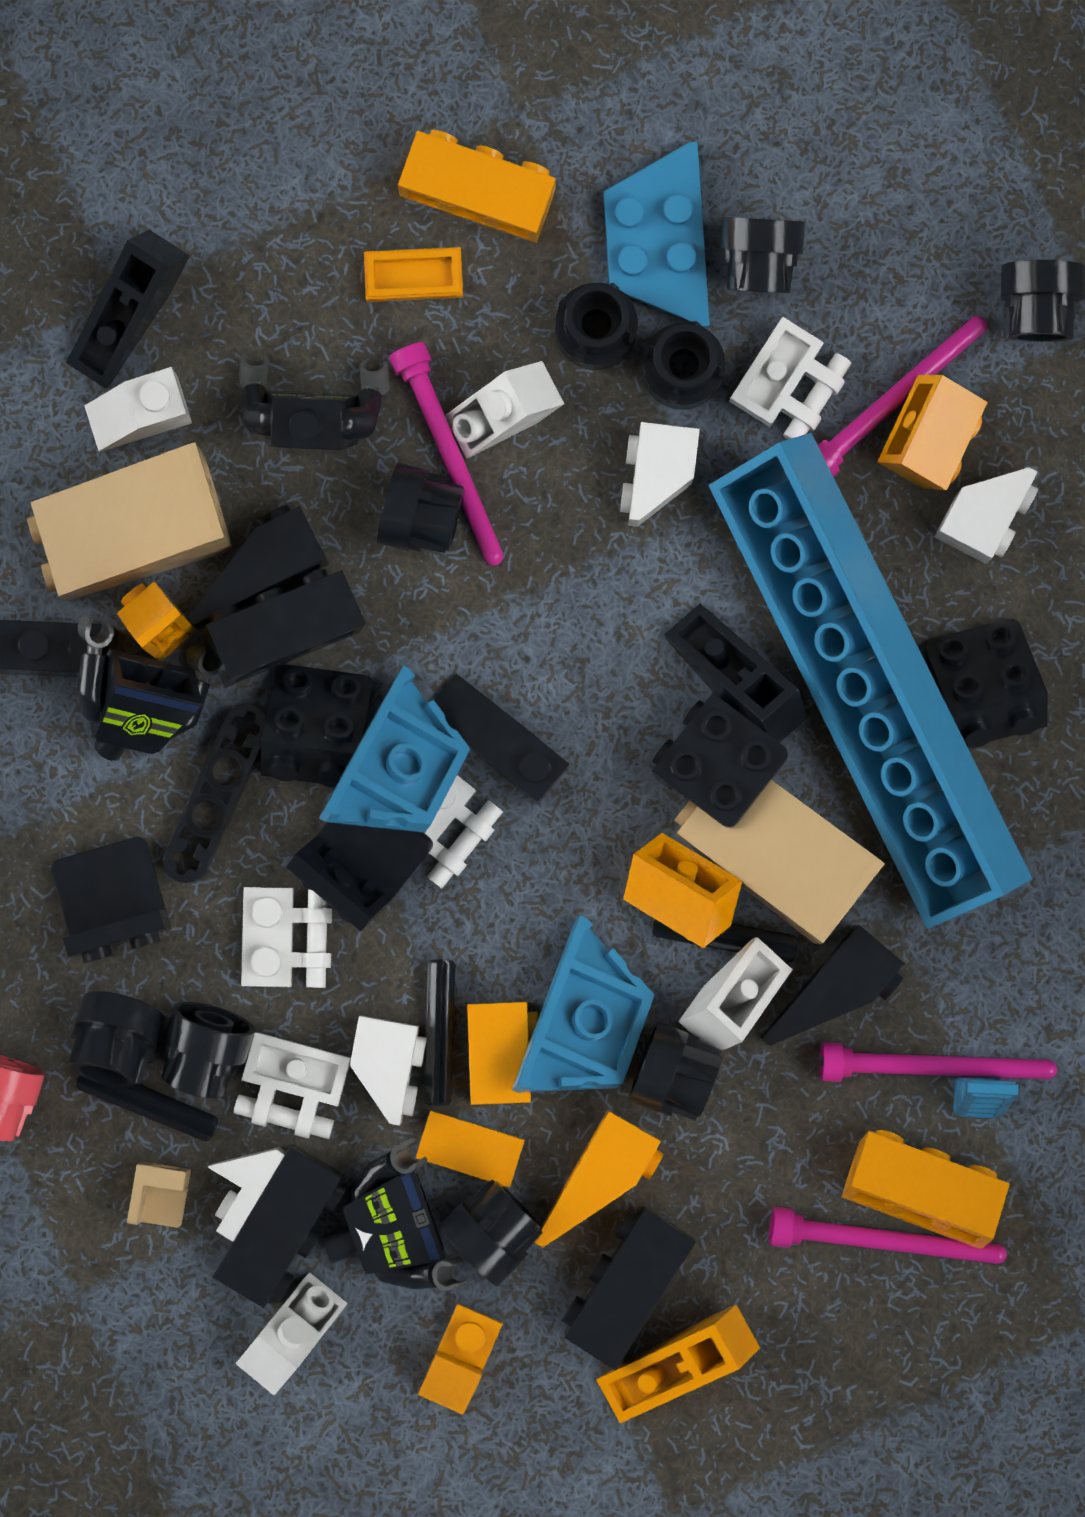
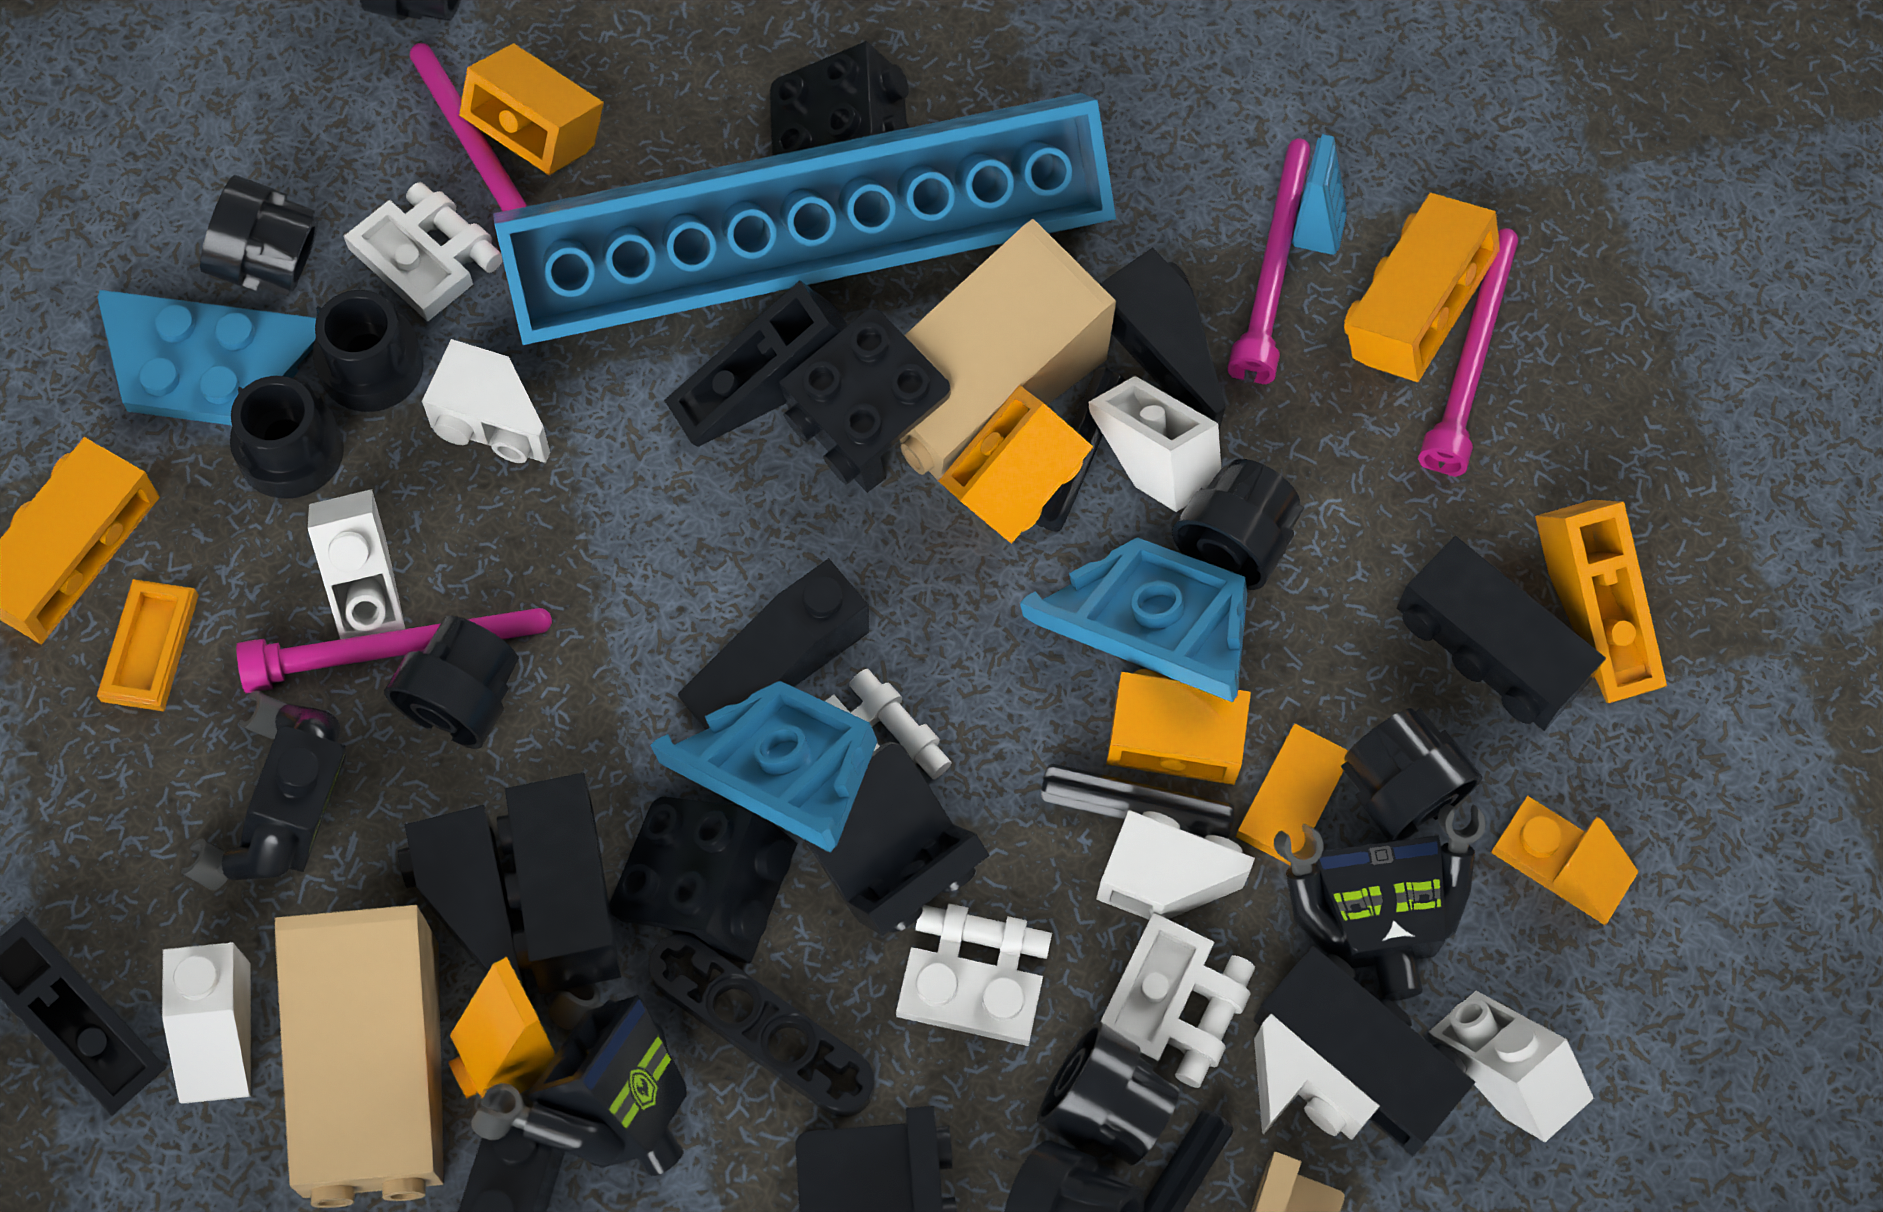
camera: 80 degrees left, 20 degrees down
(606, 1170) = (1349, 634): light orange slope -> none
(983, 512) = (645, 81): white slope -> none

